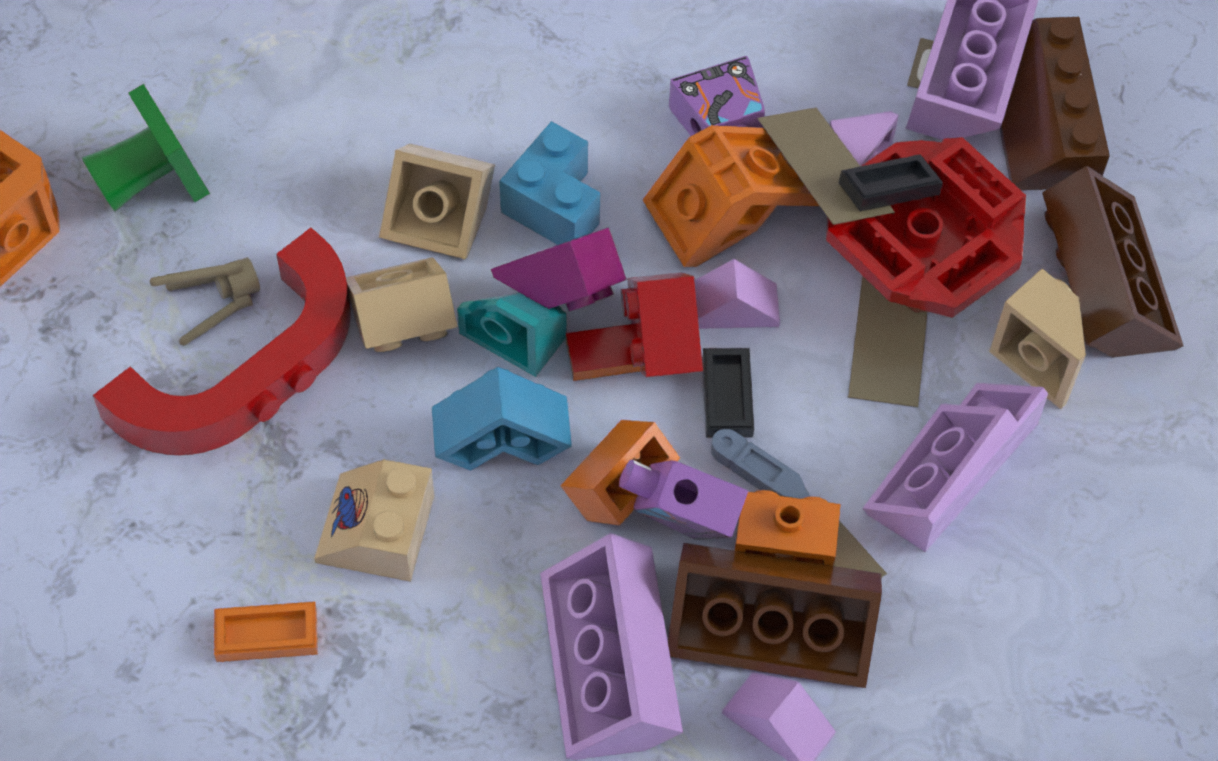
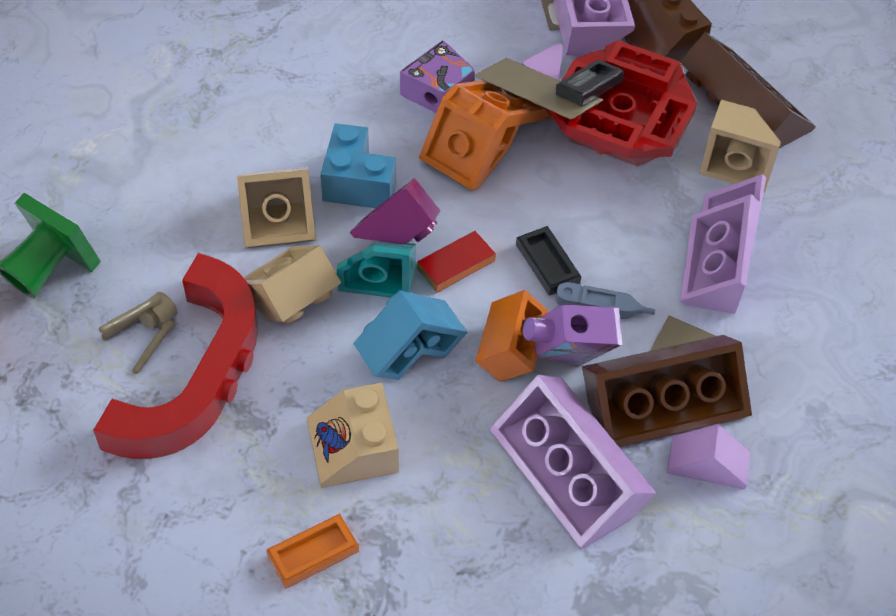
camera: 25 degrees left, 5 degrees down
(666, 323) = (489, 224): red brick -> none
(736, 298) = (515, 199): lavender slope -> none
(788, 527) = (650, 328): orange brick -> none
(887, 350) = (632, 194): dark tan sticker -> none

